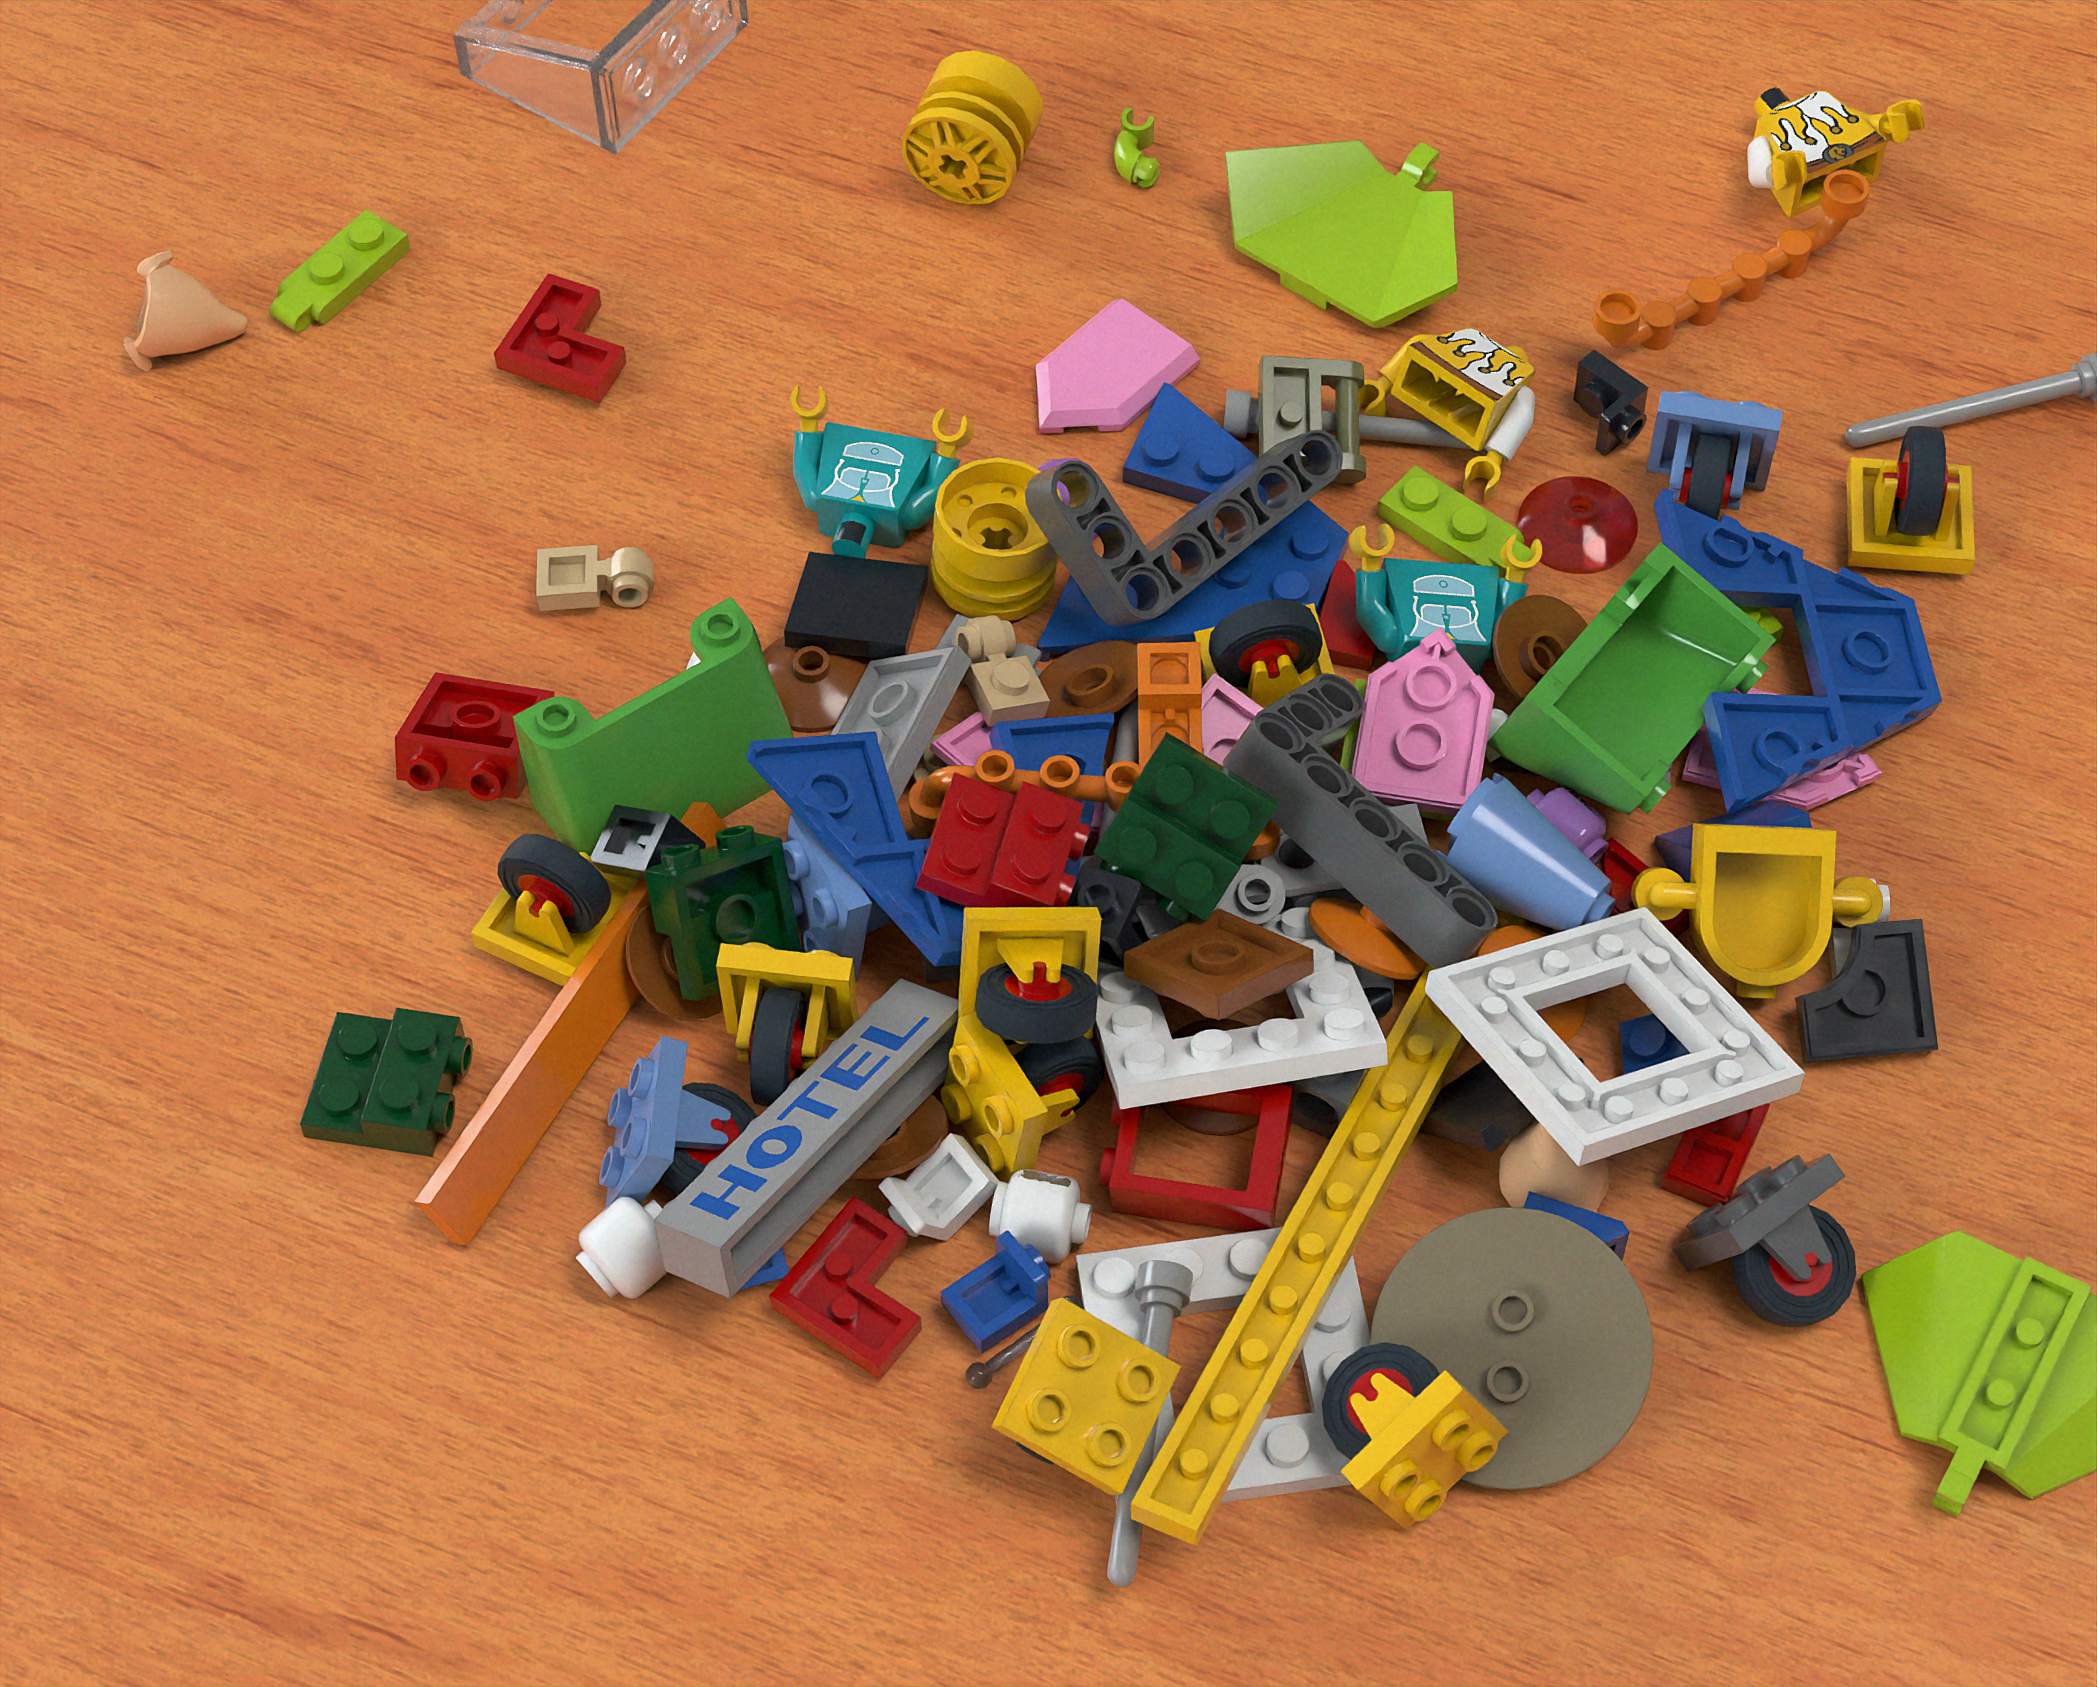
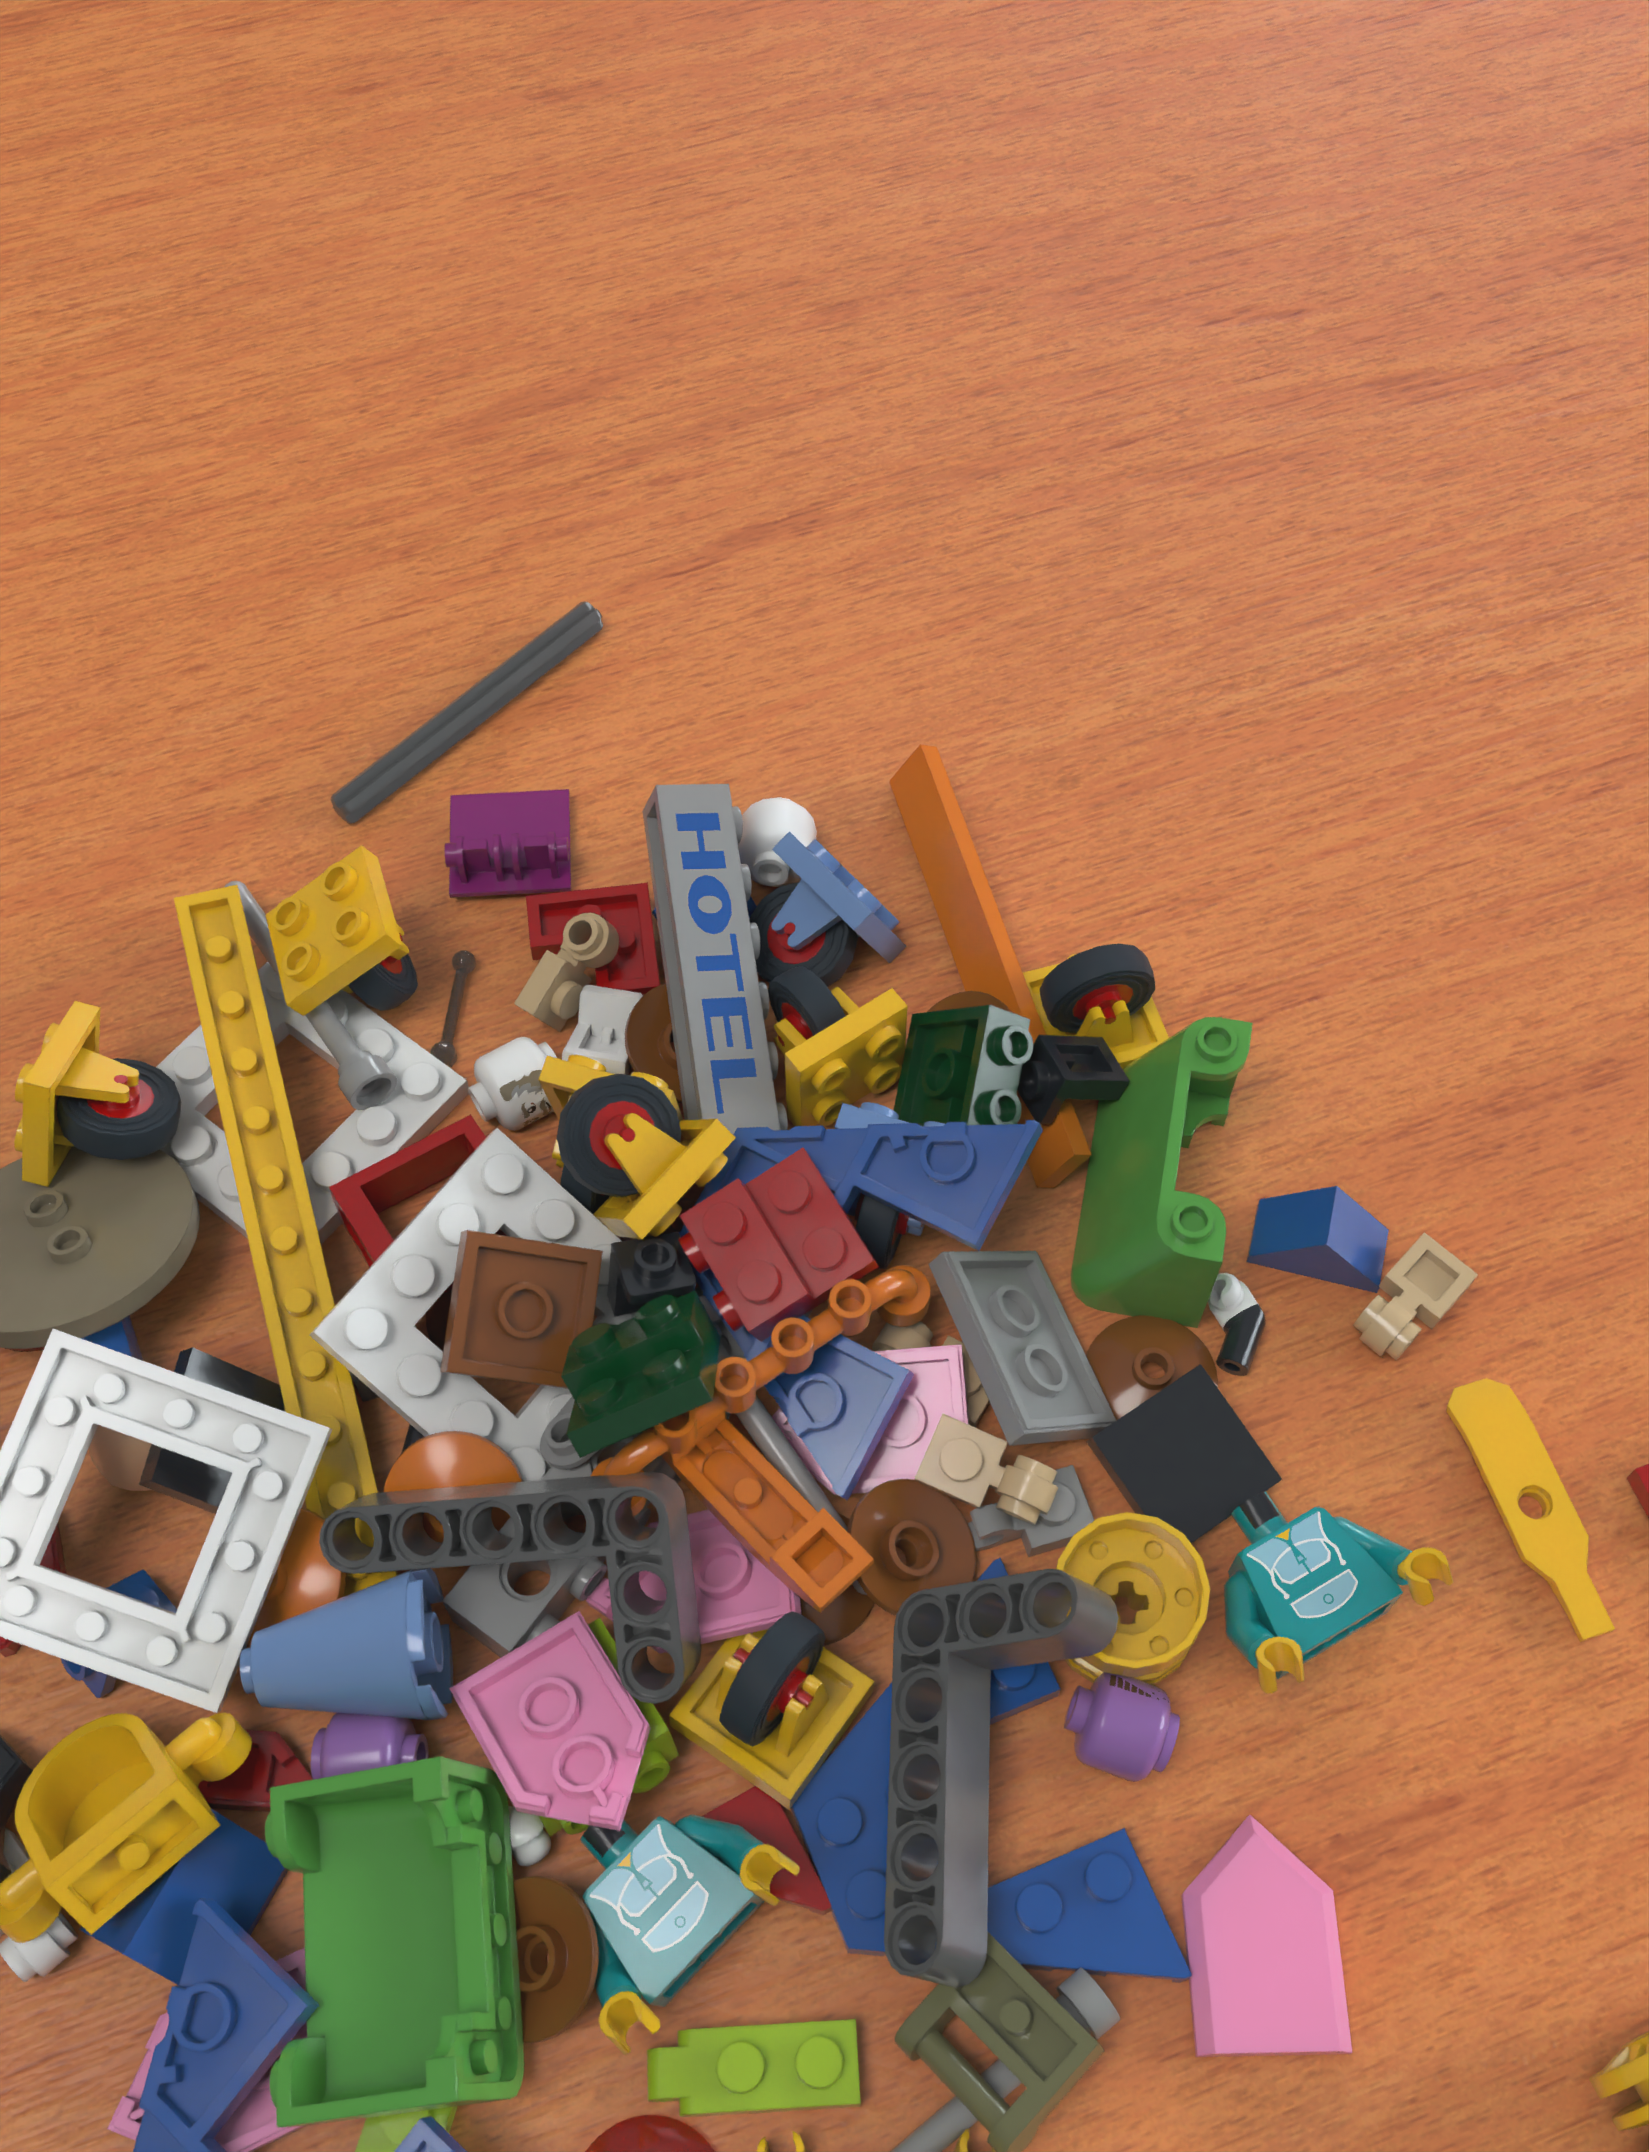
camera: 135 degrees right, 5 degrees up
(388, 1081) = (1063, 827): dark green plate -> none
(465, 737) = (1321, 1086): red plate -> none
(602, 659) = (1320, 1237): none -> blue slope
(655, 460) = (1518, 1466): none -> yellow piece
(736, 1627) = (466, 713): none -> dark grey axle
(834, 1454) = (509, 843): none -> magenta hinge
(933, 1256) = (558, 979): none -> tan plate
(999, 1293) = (487, 1010): blue bracket -> none

